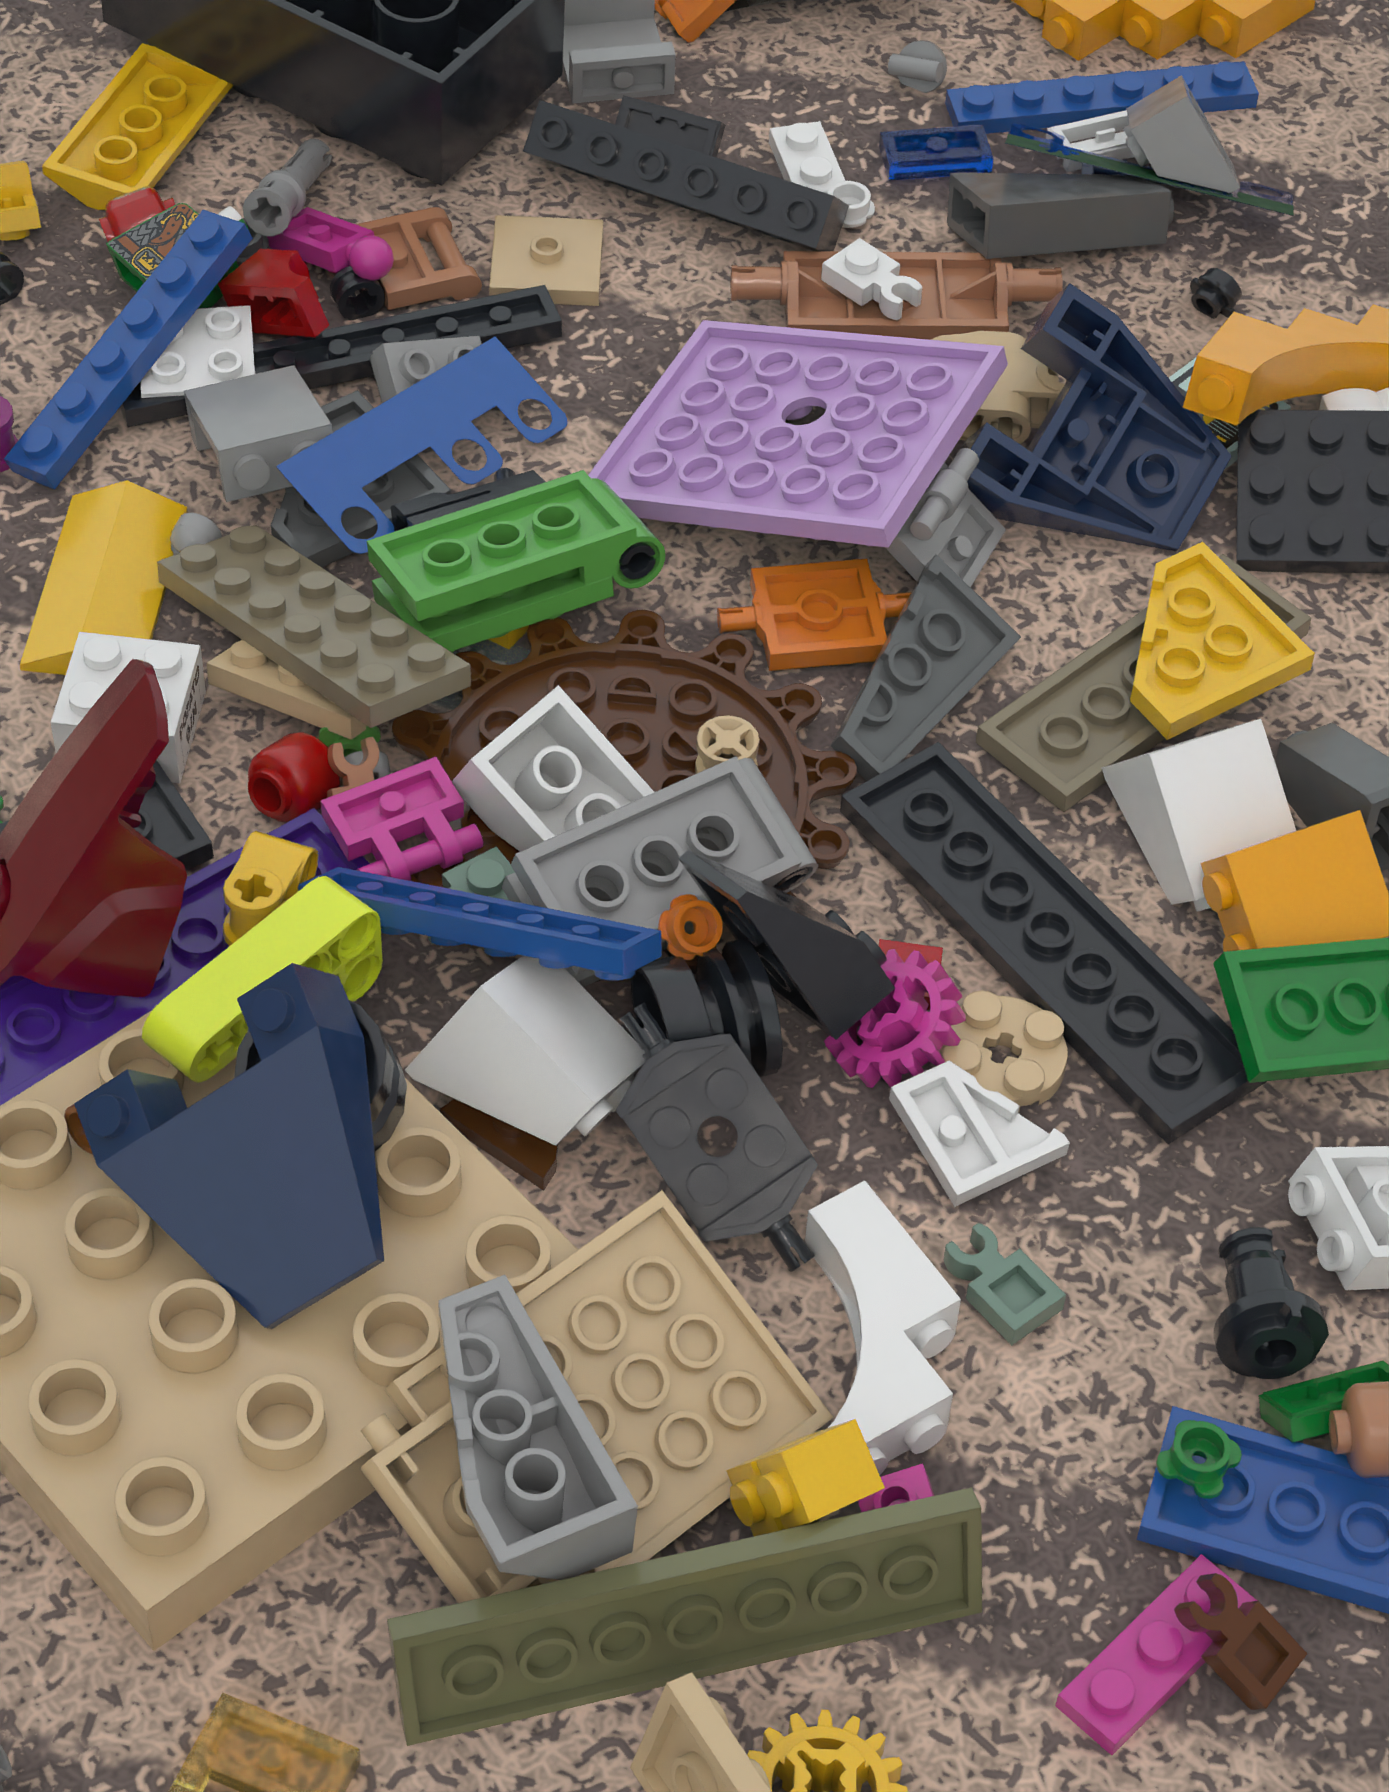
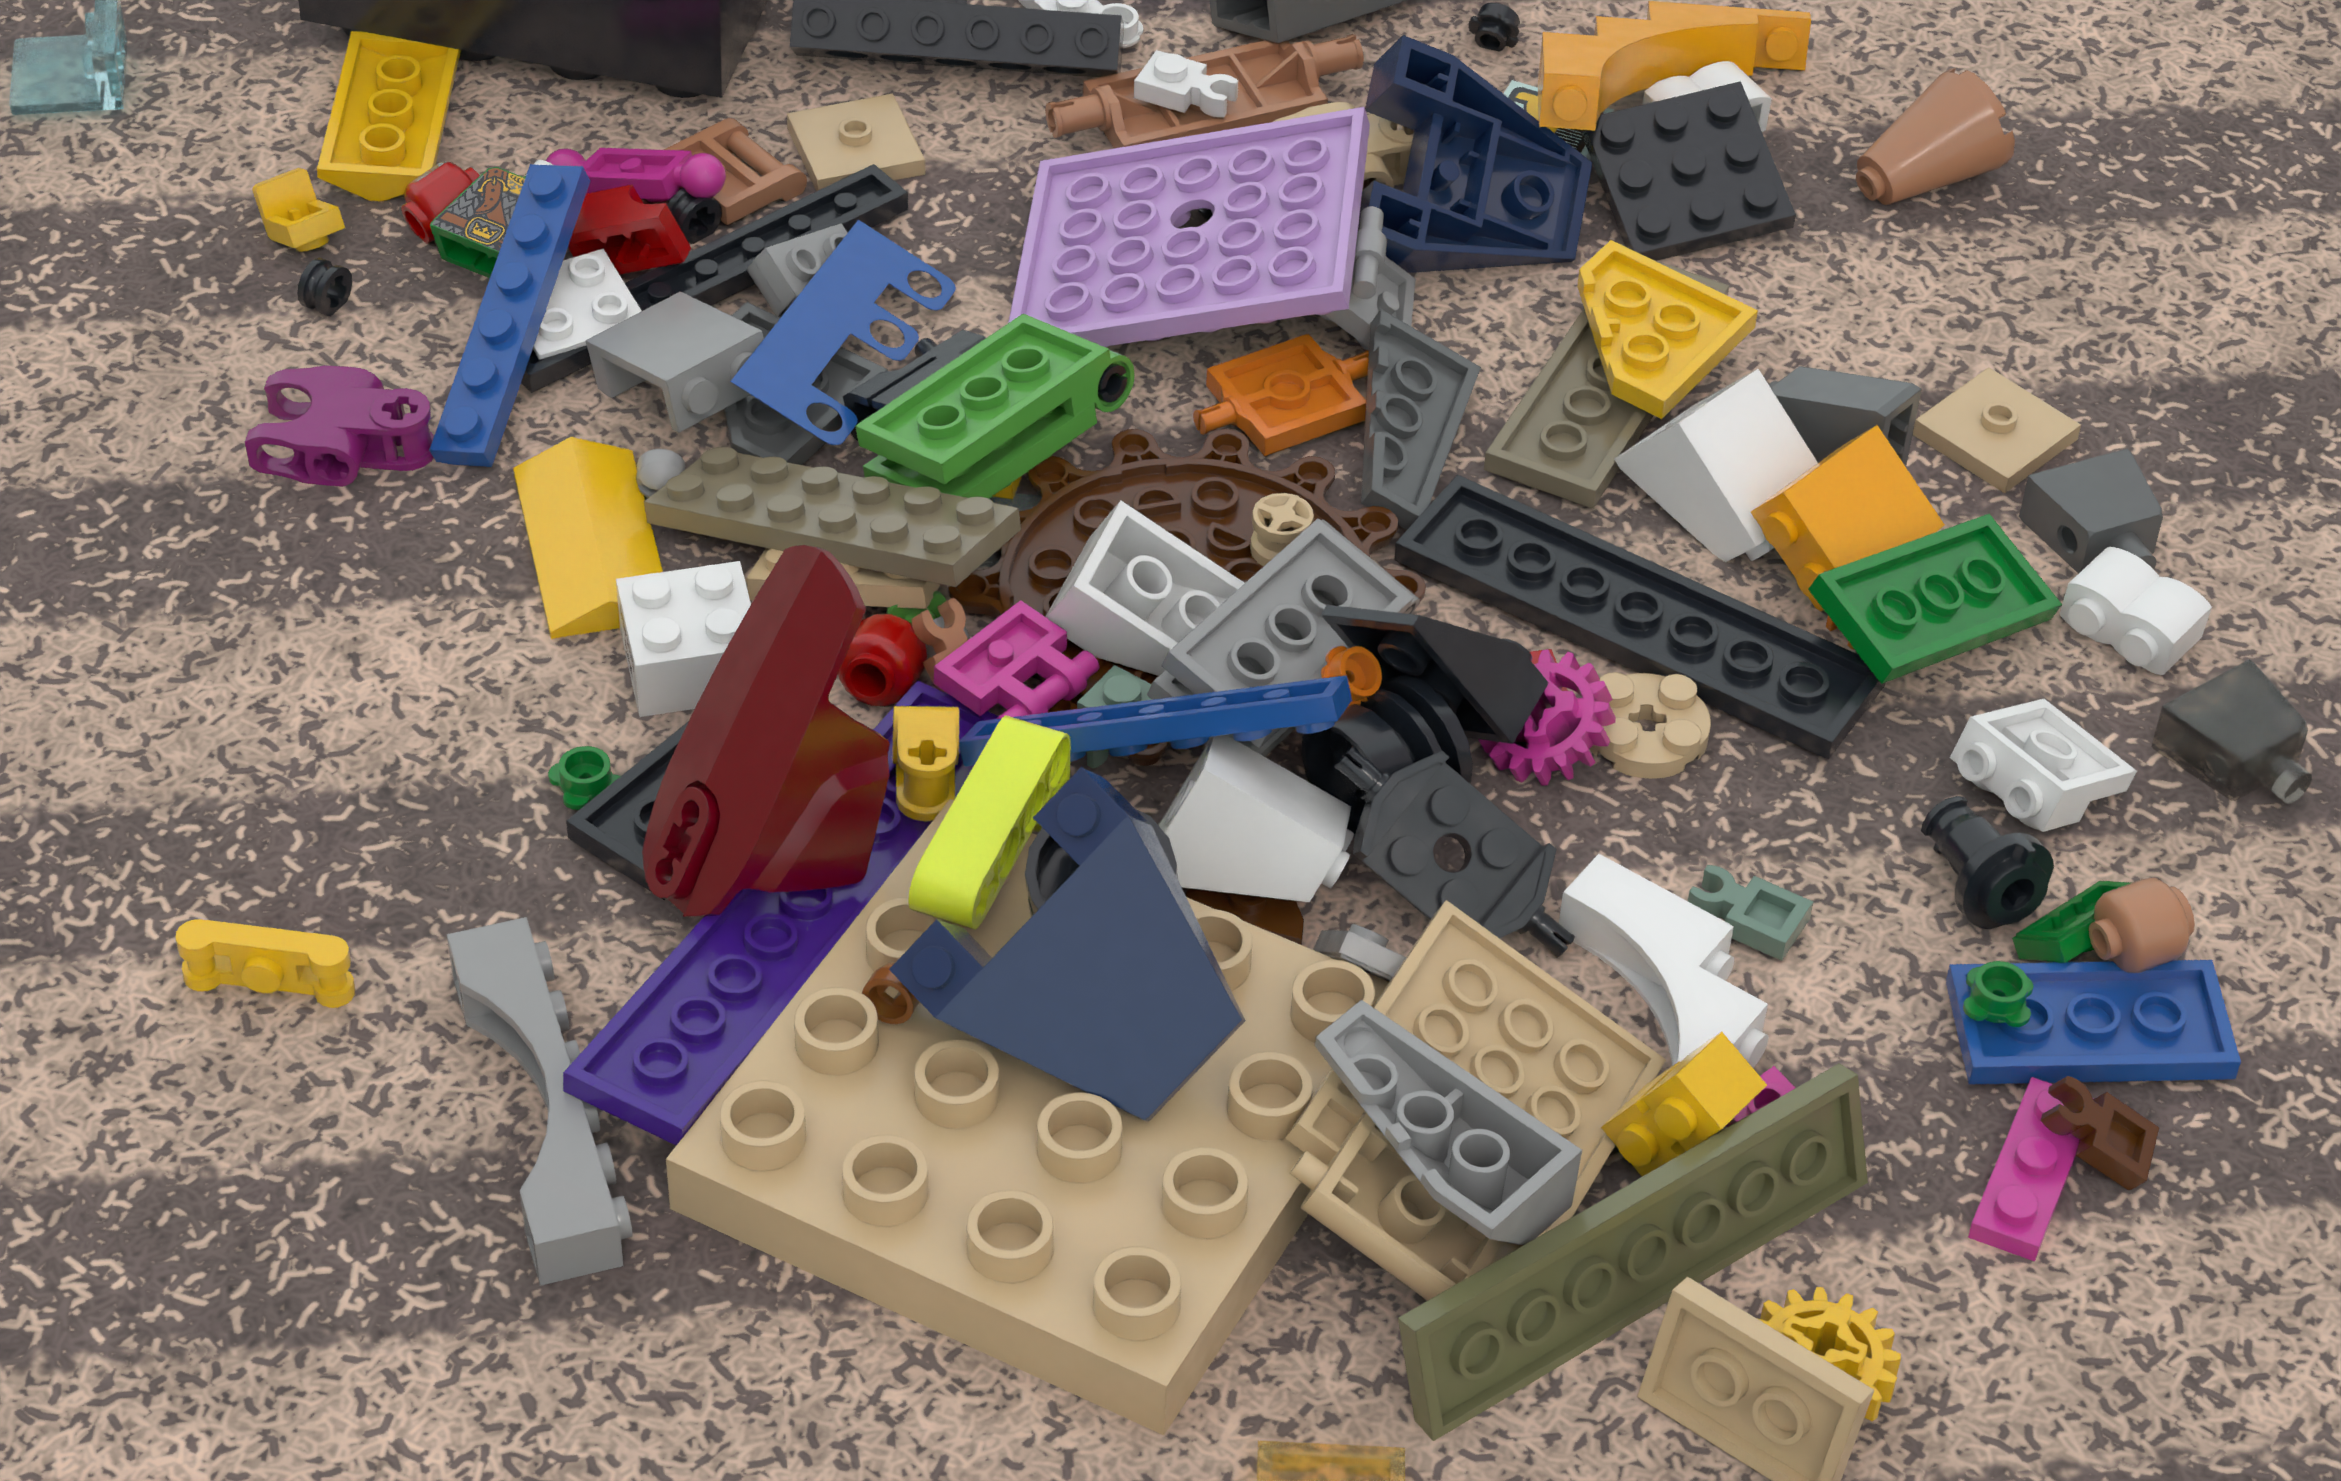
camera: 20 degrees left, 5 degrees down
(283, 191) = (578, 131): light grey pin -> none
(572, 1214) = (1362, 949): none -> light grey plate
(971, 1133) = (1658, 793): white wing -> none

